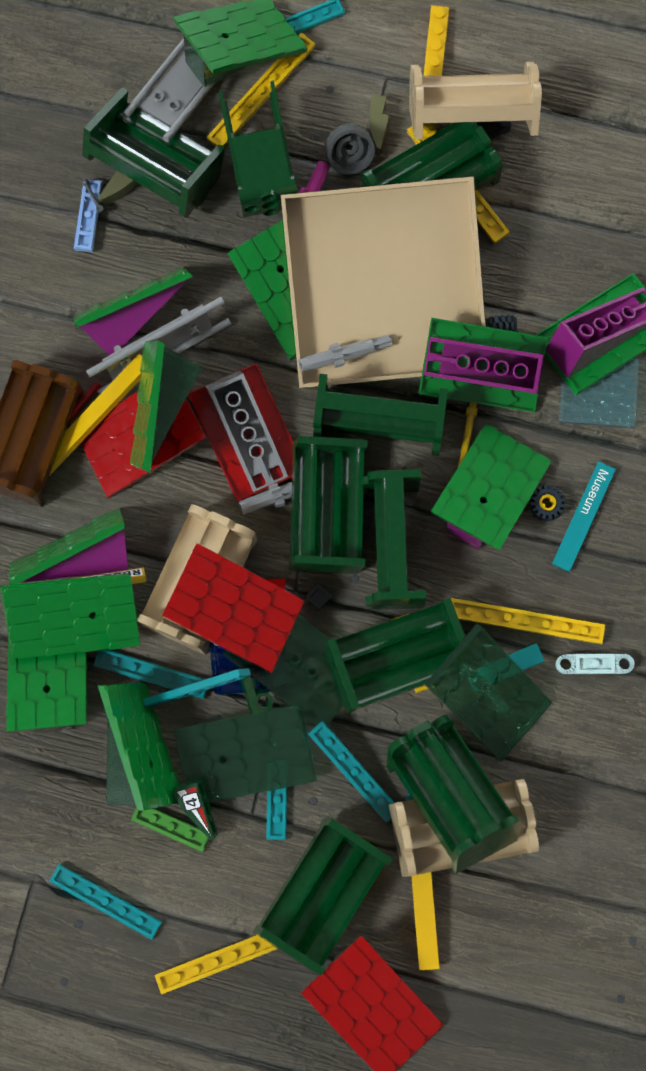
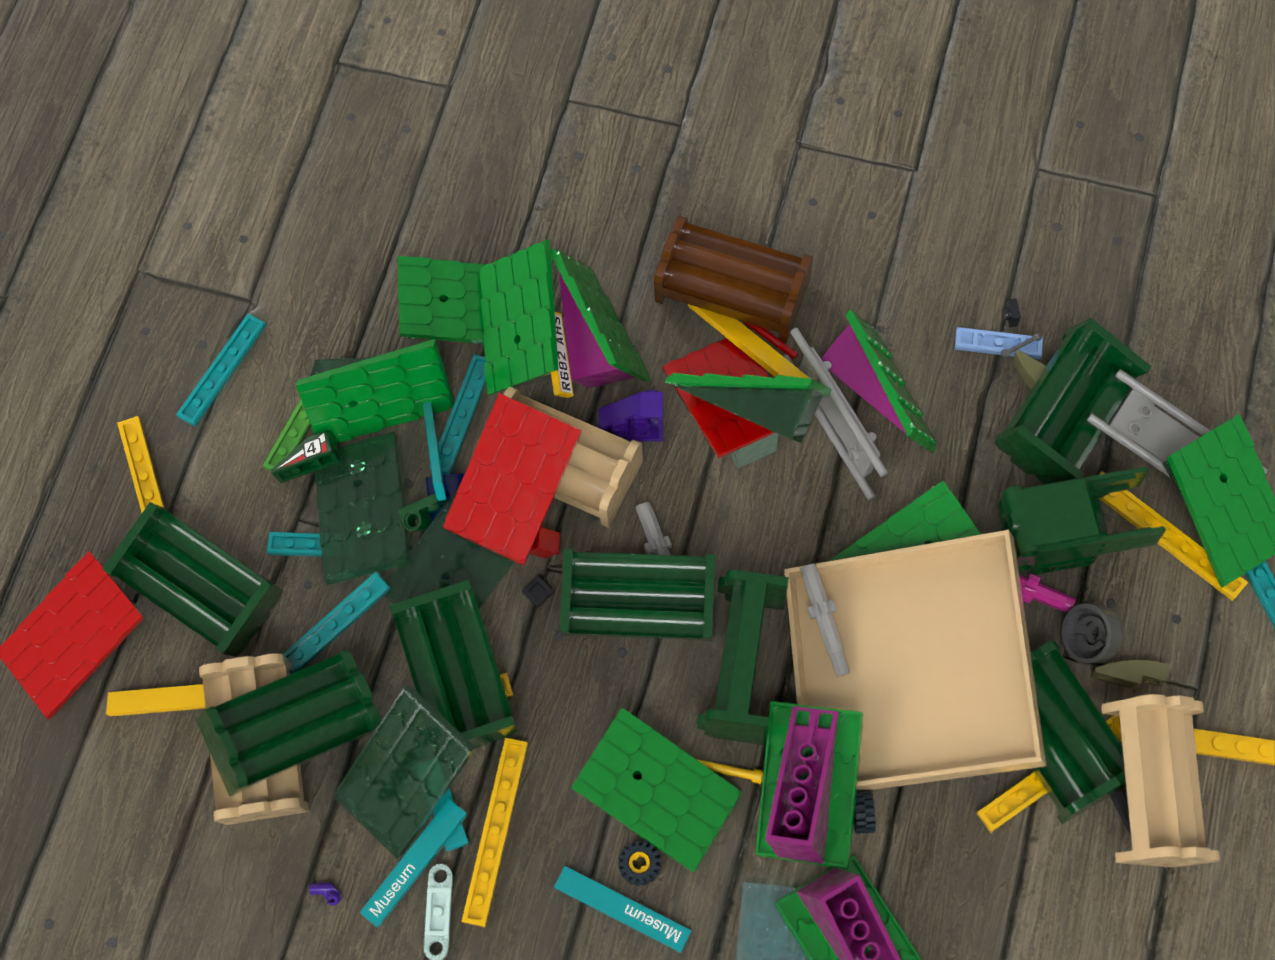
camera: 90 degrees right, 10 degrees down
(60, 203) = (1012, 313): none -> black plate
(161, 516) = (635, 417): none -> dark purple brick
(245, 431) = (739, 512): piece -> none
(391, 539) = (590, 669): dark green piece -> none
(559, 688) = (413, 863): none -> teal tile
(581, 757) = (326, 889): none -> dark purple arm

